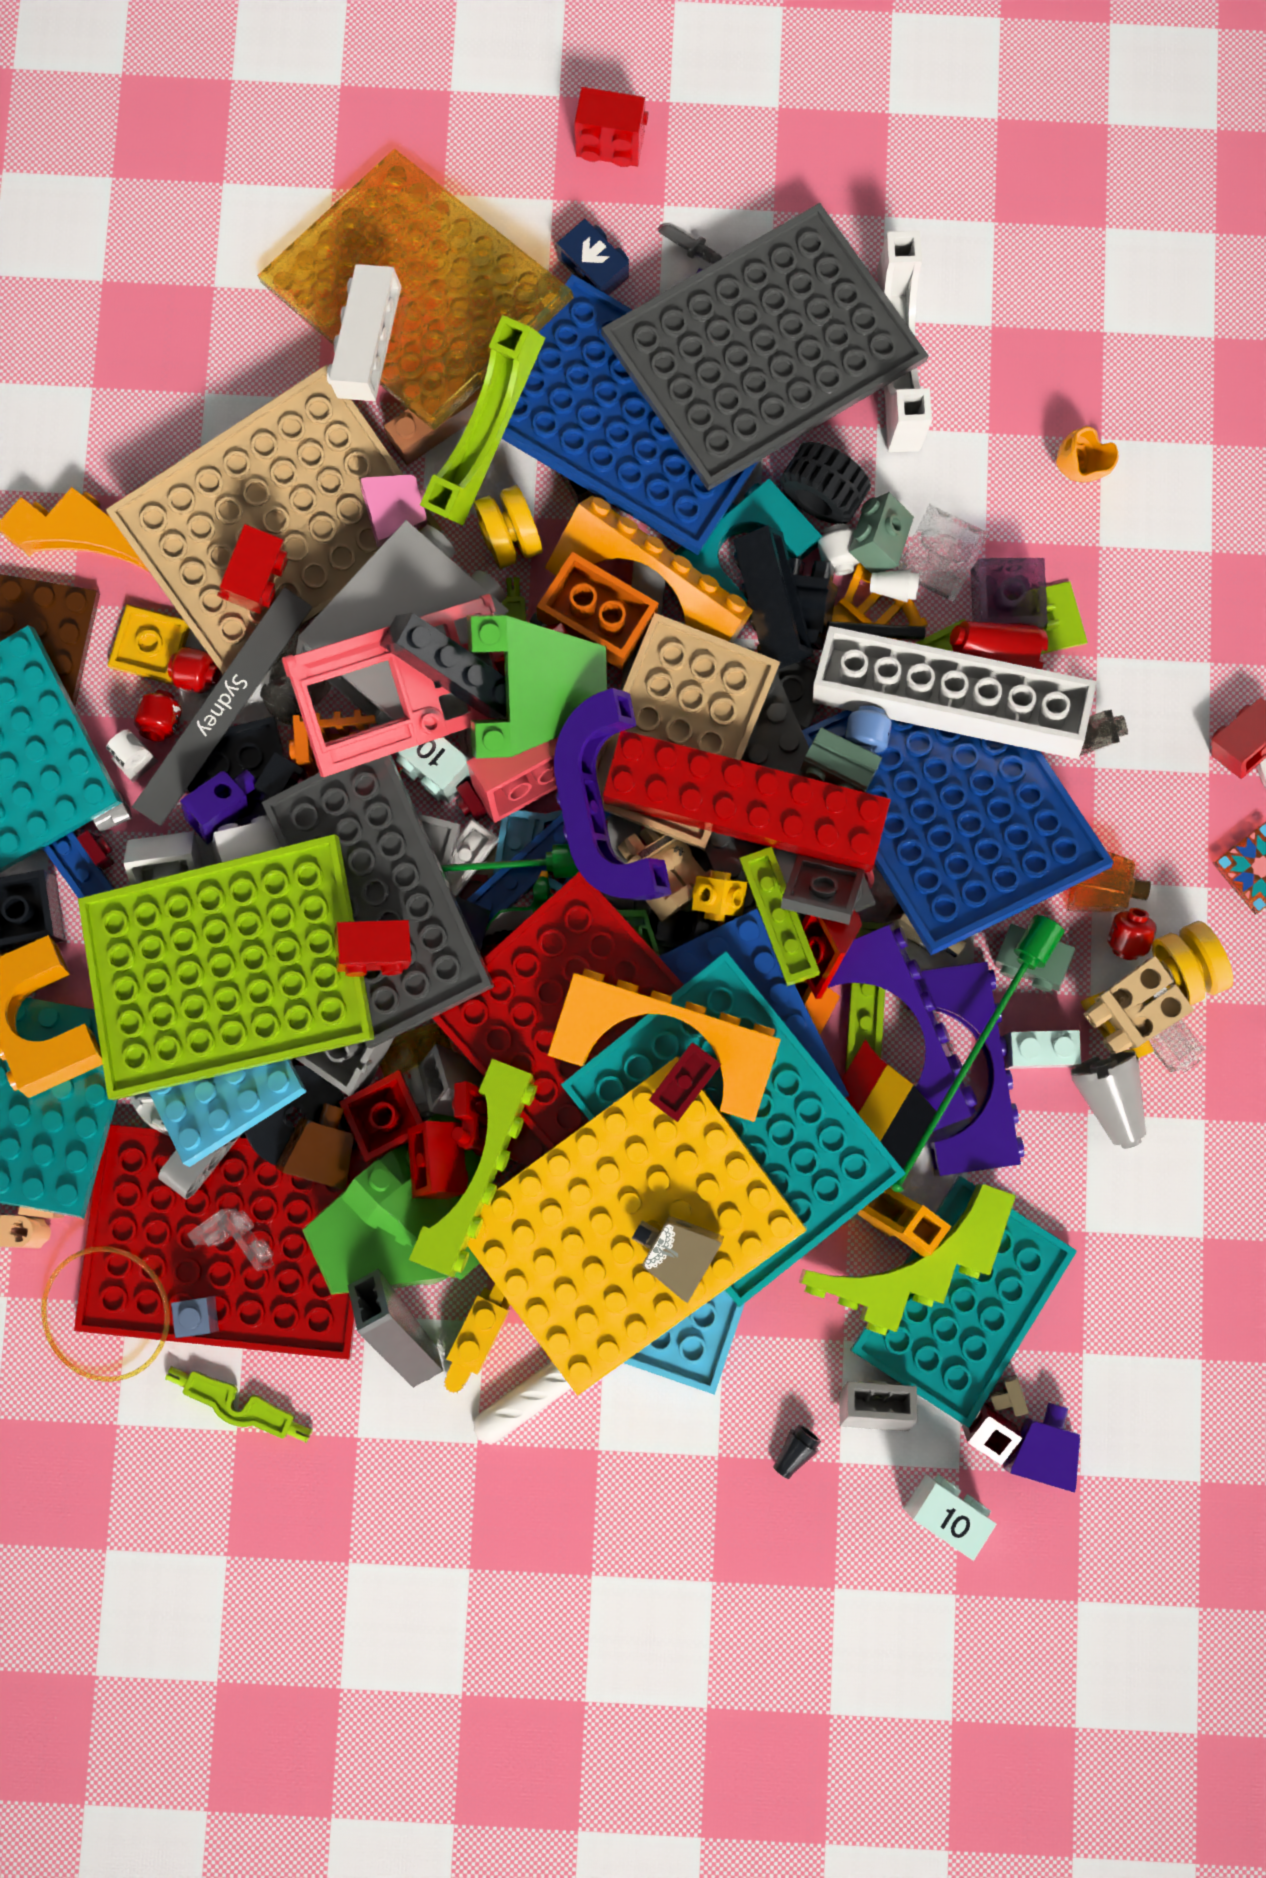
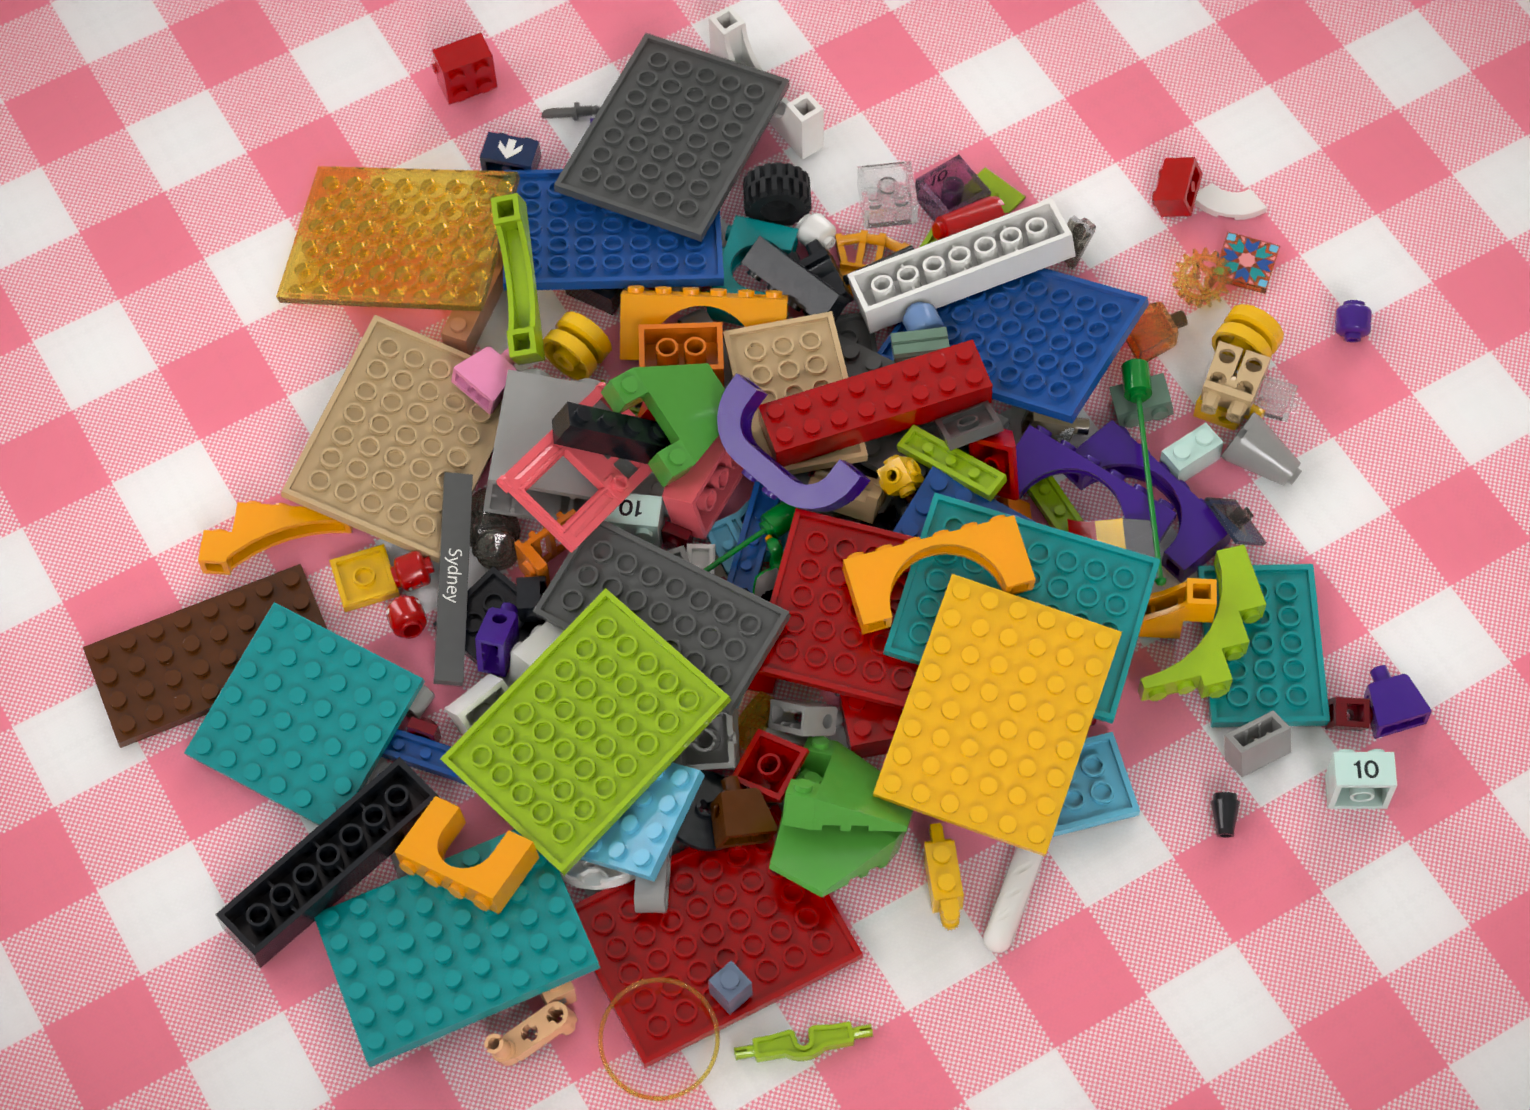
camera: 30 degrees left, 20 degrees down
(130, 754) = (407, 649): white leg -> none
(239, 1225) = (719, 901): clear bracket -> none
(252, 570) = (419, 466): red brick -> none
(364, 332) = (389, 277): white brick -> none
(372, 947) = (688, 635): red brick -> none
(393, 1329) = (884, 894): dark grey slope -> none
(436, 1161) = (833, 756): red brick -> none
(445, 1243) = (879, 797): lime arch -> none
(472, 1111) = (841, 716): red plate -> none
(678, 1253) = (1047, 697): dark tan torso -> none
(685, 1081) = (970, 580): dark red plate -> none
(881, 533) = (838, 204): sand green brick -> none
(895, 584) = (871, 229): white cone -> none
(1010, 1397) = (1343, 683): dark tan tile -> none
(1031, 1154) = (1235, 521): none -> clear smoke piece
(1084, 457) = (938, 87): light orange helmet -> none
(1131, 934) = (1194, 348): red head -> none
(1194, 874) = (1192, 279): none -> clear yellow gear

